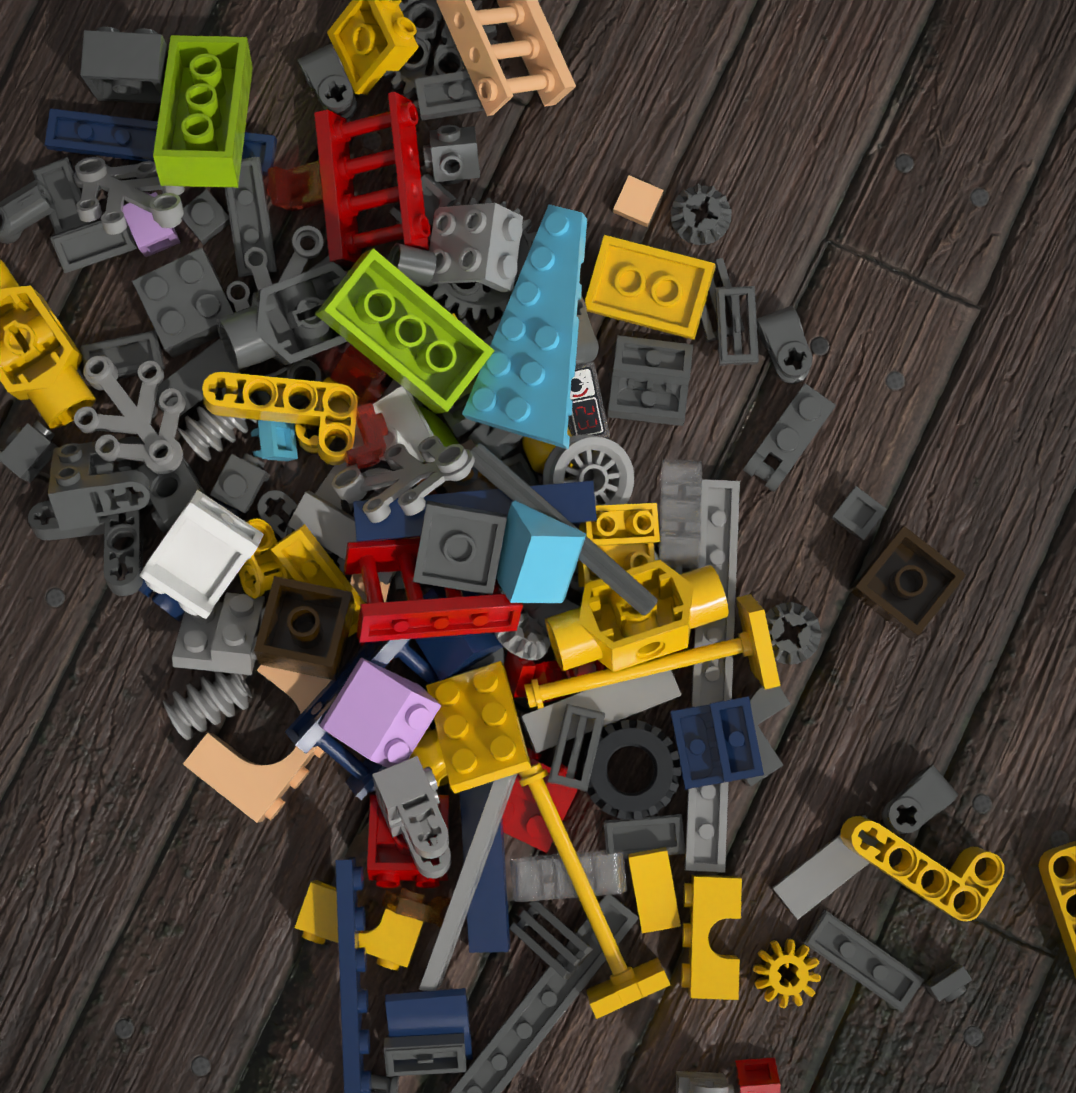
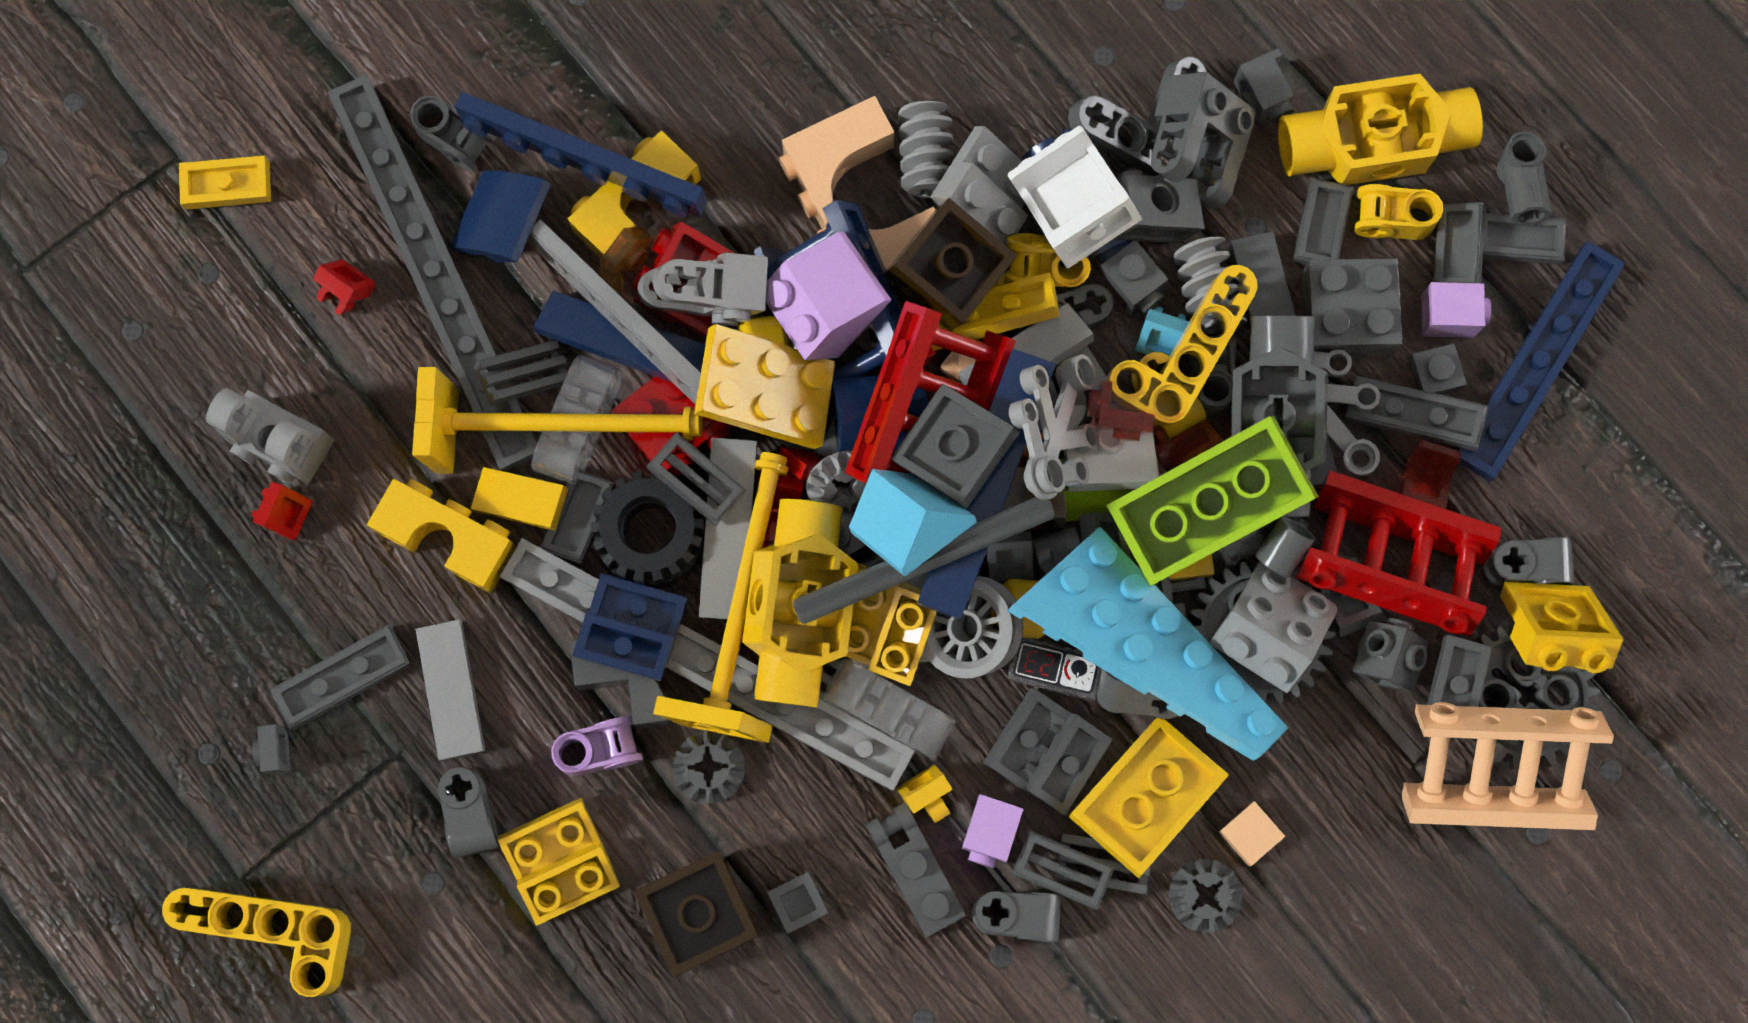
camera: 115 degrees right, 5 degrees down
(89, 309) = (1393, 212): none -> yellow piece
(94, 175) = (1531, 279): light grey plant -> none
(124, 64) = (1638, 357): dark grey brick -> none
(135, 419) = (1249, 200): light grey plant -> none
(203, 111) = (1551, 409): lime brick -> none
(425, 1054) = (475, 199): dark grey tile -> none
(728, 456) = (926, 792): none -> yellow tile
(733, 393) = (991, 831): none -> lavender brick
(773, 977) = (359, 607): yellow gear -> none
(818, 723) = (600, 747): none -> lavender piece
(915, 863) = (406, 776): yellow beam -> none
(918, 713) = (558, 861): none -> yellow slope

